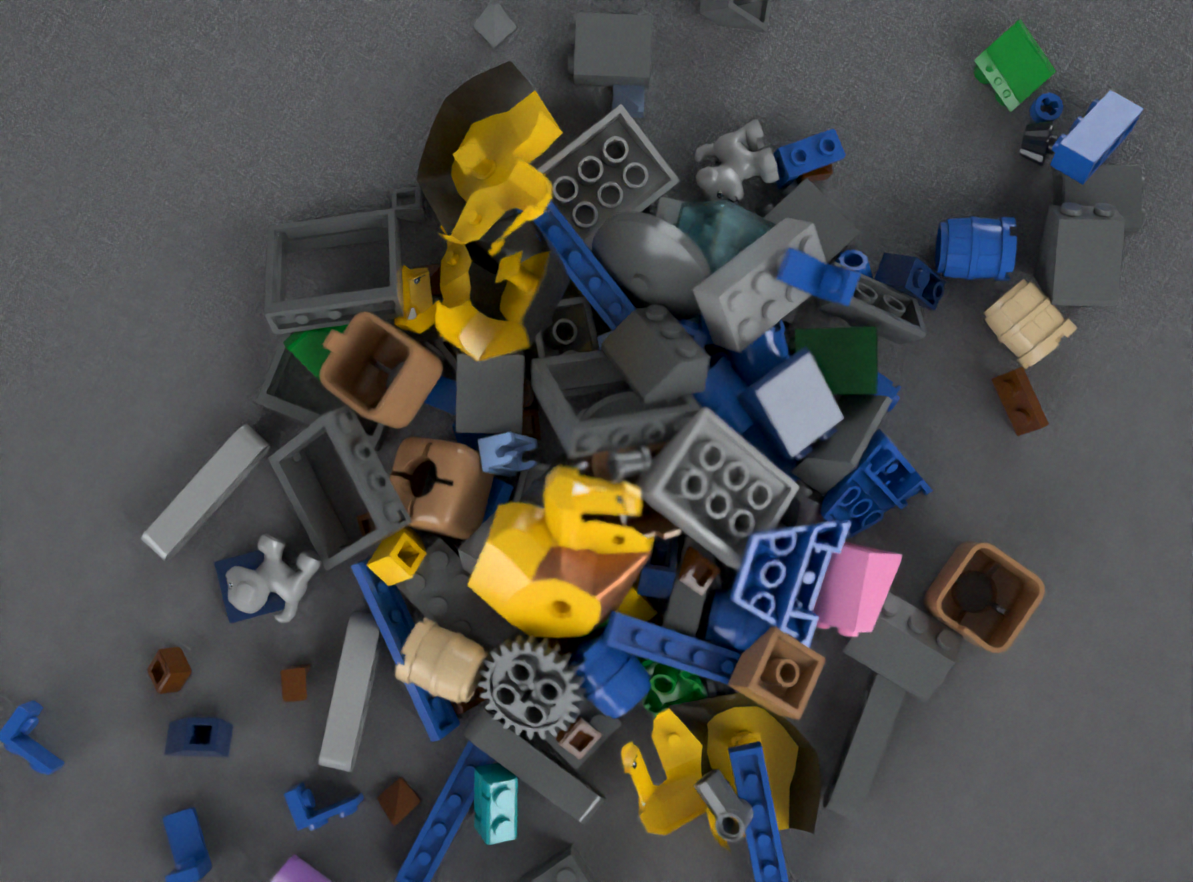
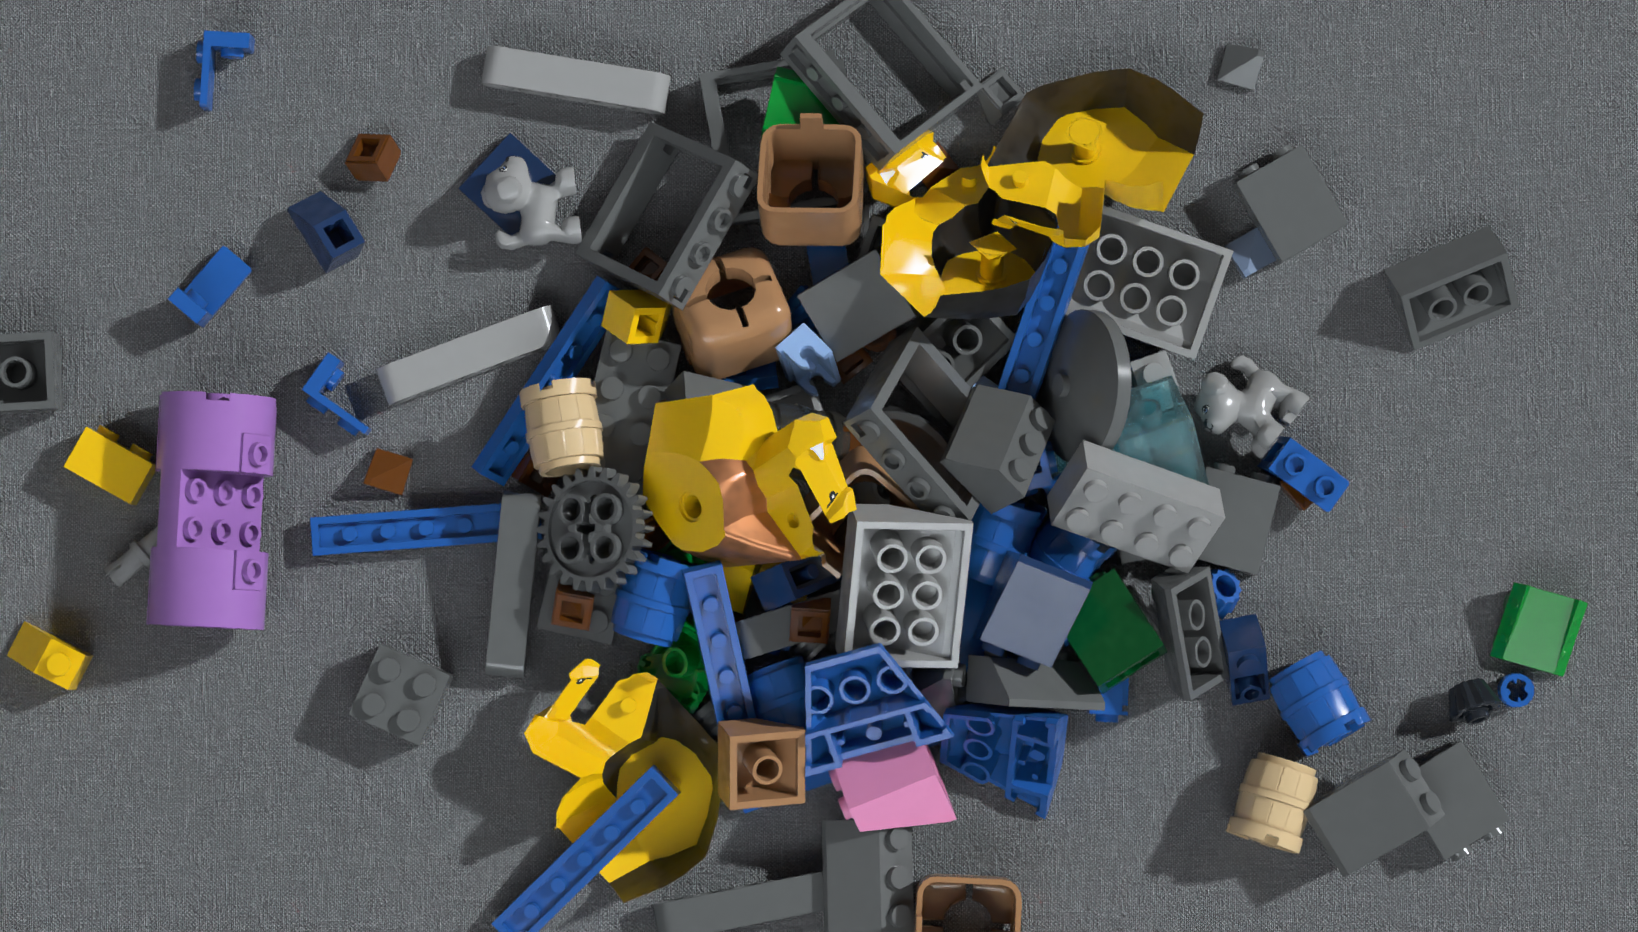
camera: 50 degrees right, 0 degrees up
(294, 682) = (442, 293): reddish brown slope -> none
(495, 803) = (452, 569): teal brick -> none
(629, 463) = (873, 483): dark grey bush -> none
(724, 805) = (597, 790): dark grey piece -> none
(817, 277) = (1171, 553): blue bracket -> none
(1020, 401) = (1191, 848): reddish brown plate -> none
(1095, 136) = (1509, 753): brick -> none

